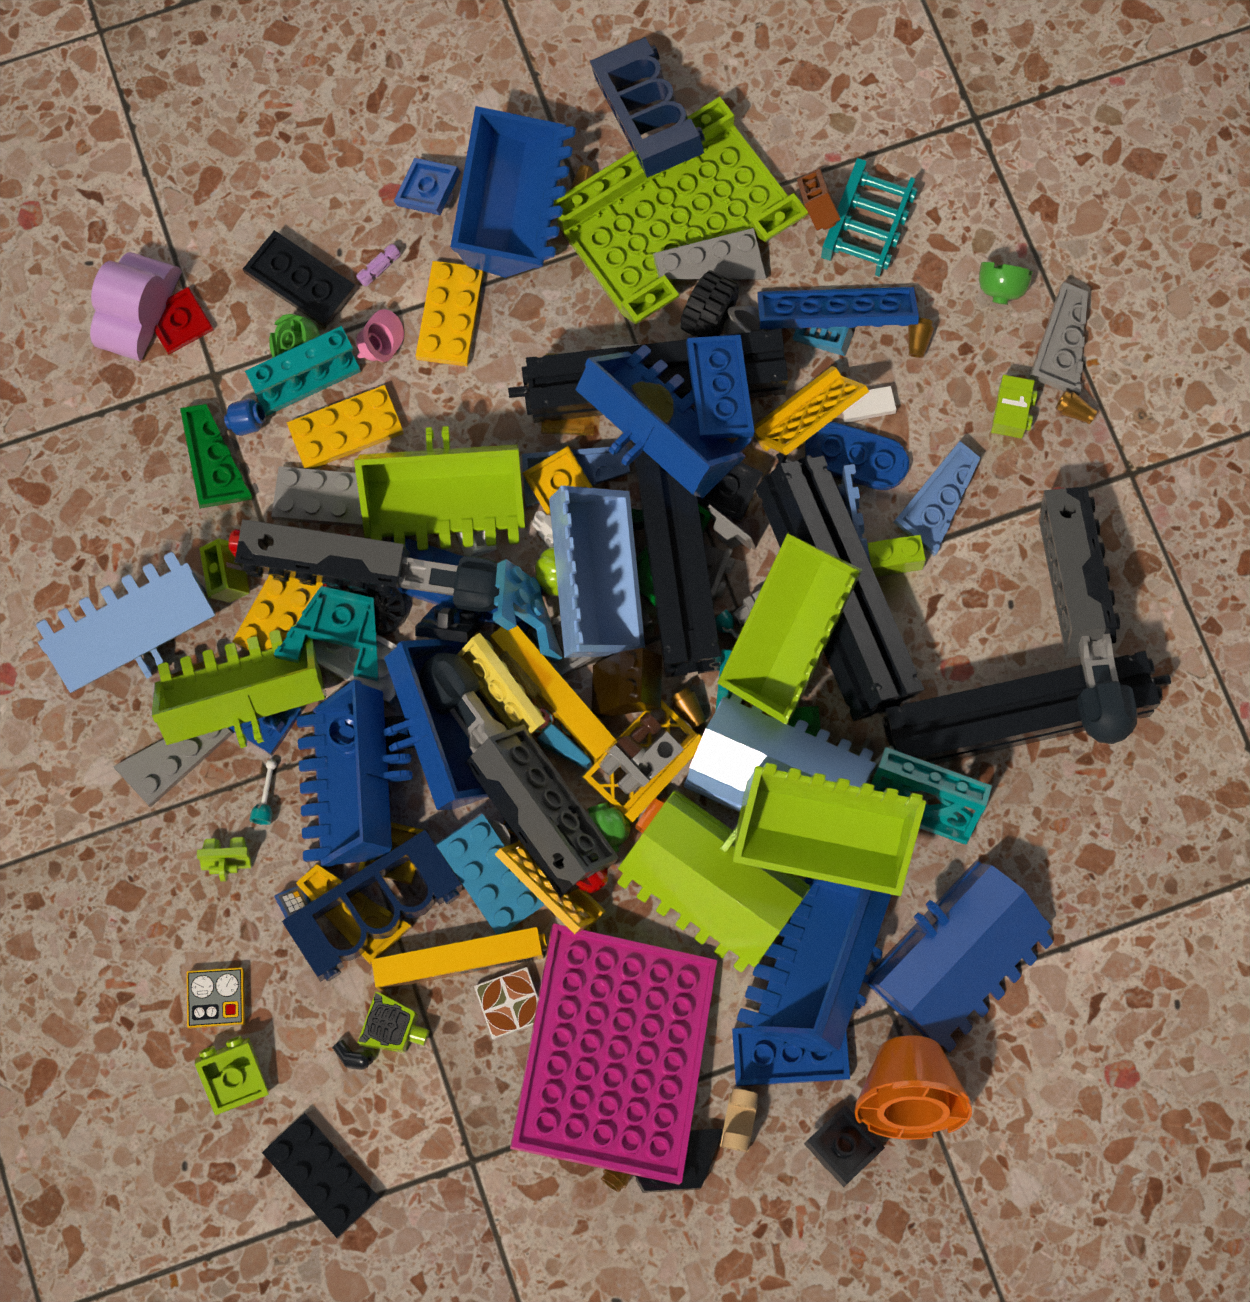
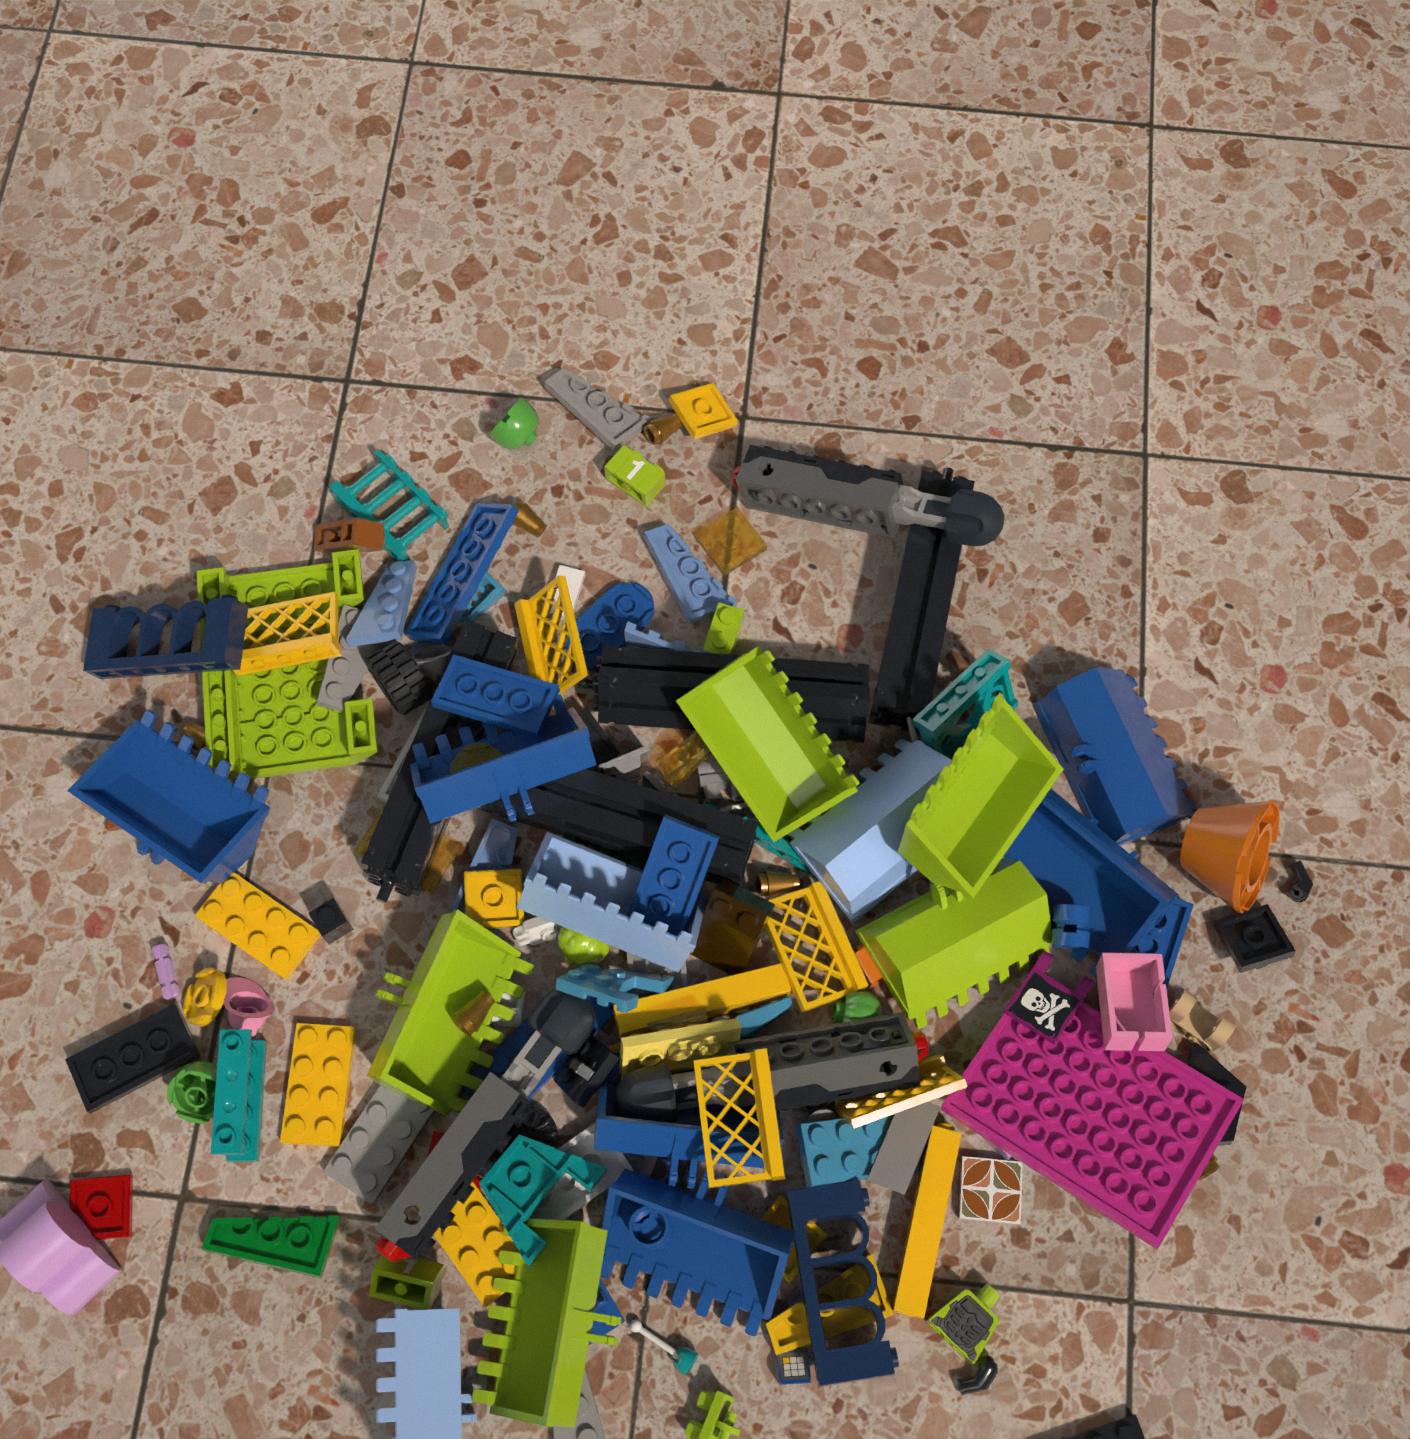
camera: 70 degrees left, 5 degrees down
(245, 417) = (250, 1183): blue head -> none
(370, 304) = (206, 997): none -> yellow tile
(427, 186) = (114, 884): blue hinge -> none
(453, 513) = (472, 1015): none -> pearl gold cone
(461, 776) = (766, 1116): none -> yellow fence
(478, 366) = (330, 921): none -> black brick
(506, 909) = (903, 1147): none -> light grey sticker
(635, 609) = (674, 874): none -> blue plate
(635, 760) = (817, 950): light grey hips -> none
(686, 210) = (286, 651): none -> yellow fence
(690, 980) = (1046, 1004): none -> flag
(722, 1050) = (1127, 1002): none -> bright pink piece
(750, 573) = (683, 759): none -> clear yellow slope
(770, 263) = (386, 608): none -> medium blue wing
(778, 970) = (1071, 916): none -> blue wheel
(922, 1175) = (1302, 884): none -> black arm
(995, 521) = (730, 541): none -> clear yellow tile
(1113, 434) = (703, 411): none -> yellow tile

